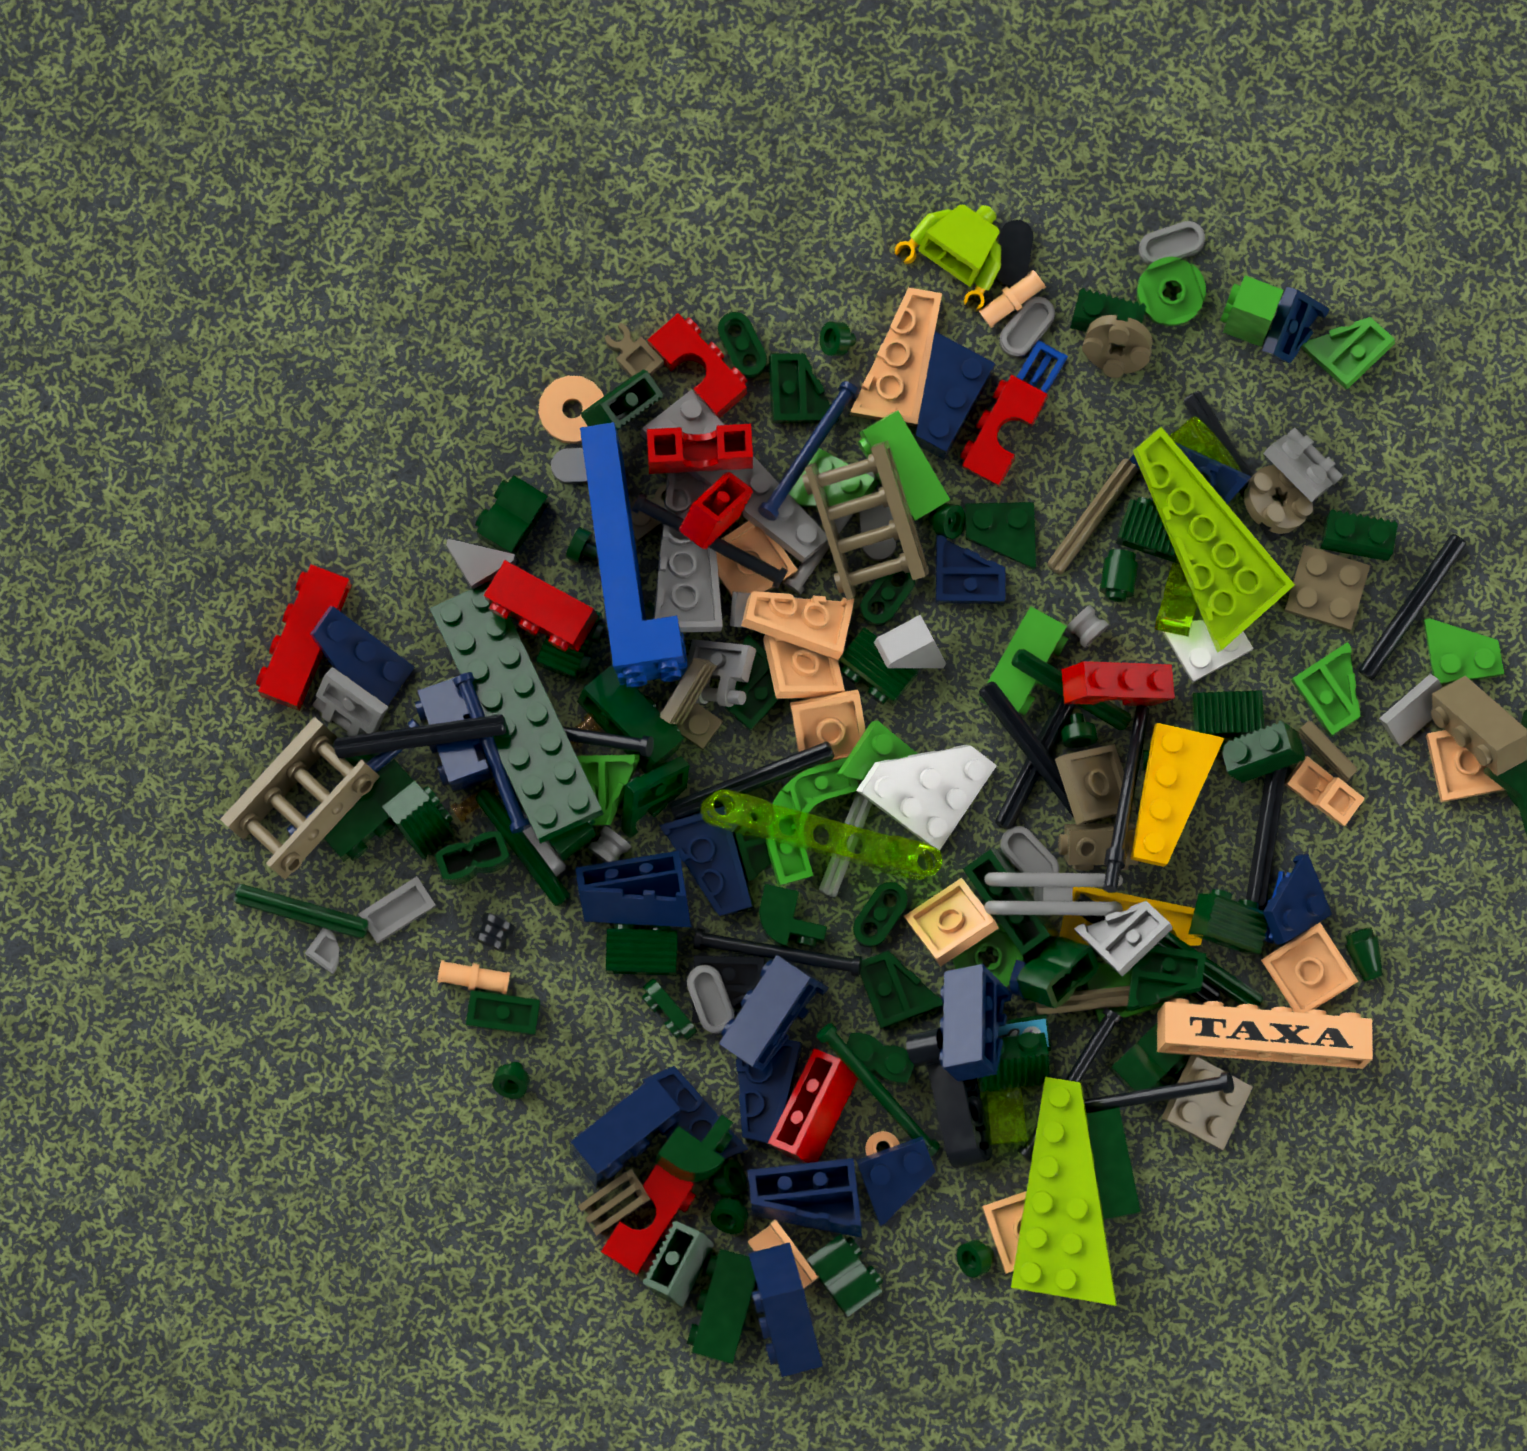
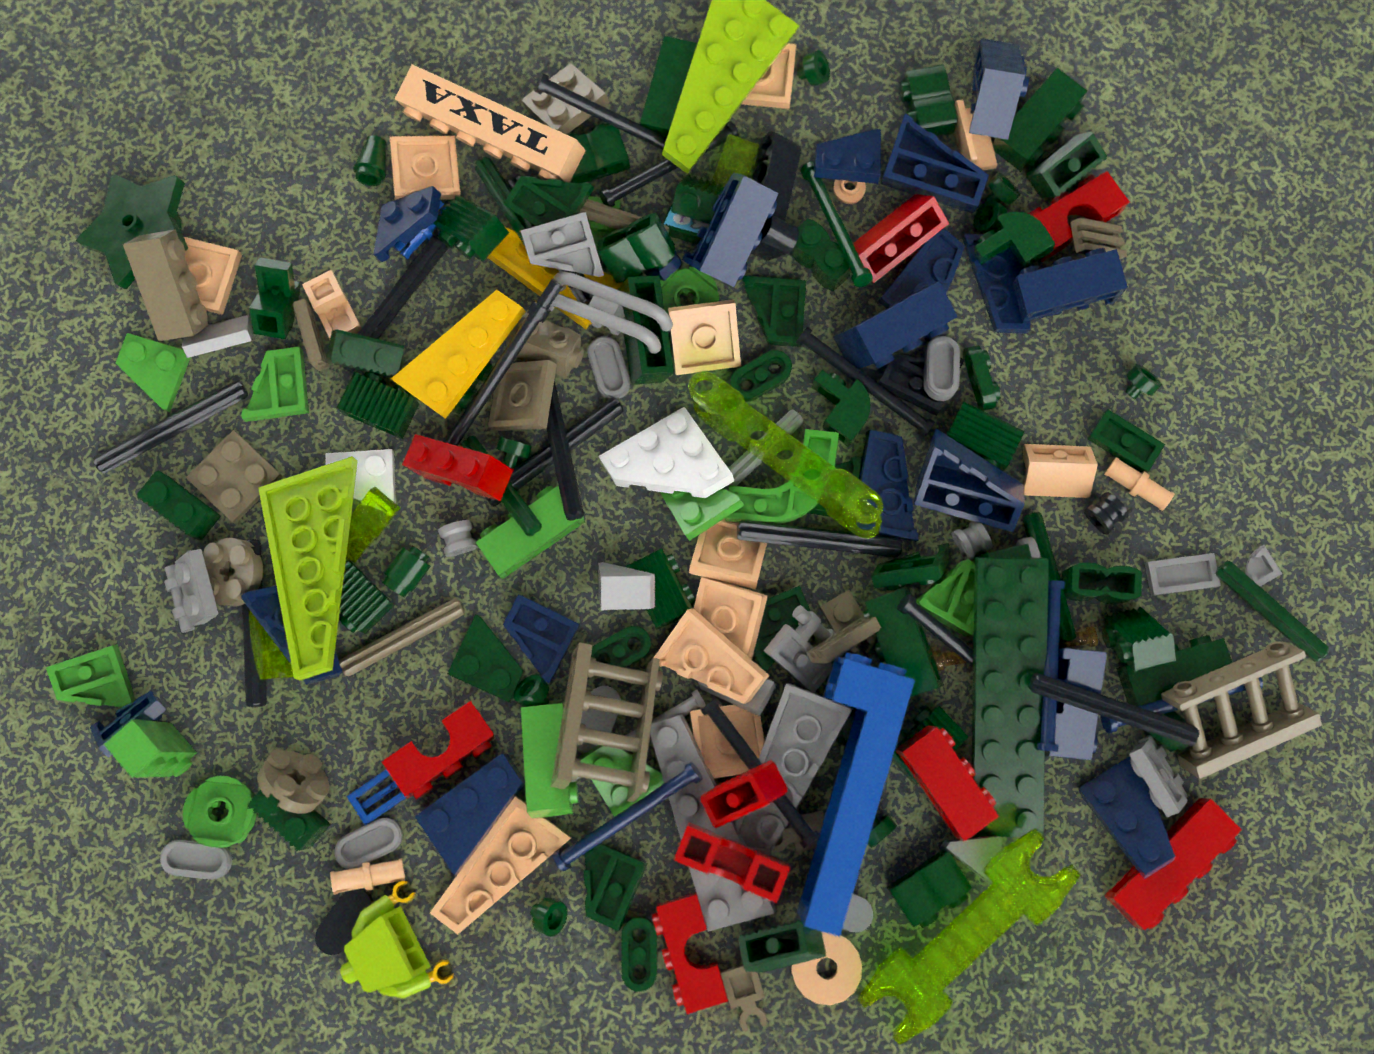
camera: 155 degrees left, 0 degrees up
(441, 541) = (1012, 894): none -> clear neon green piece
(556, 956) = (1059, 470): none -> light nougat panel
(1378, 766) = (273, 307): none -> dark green brick

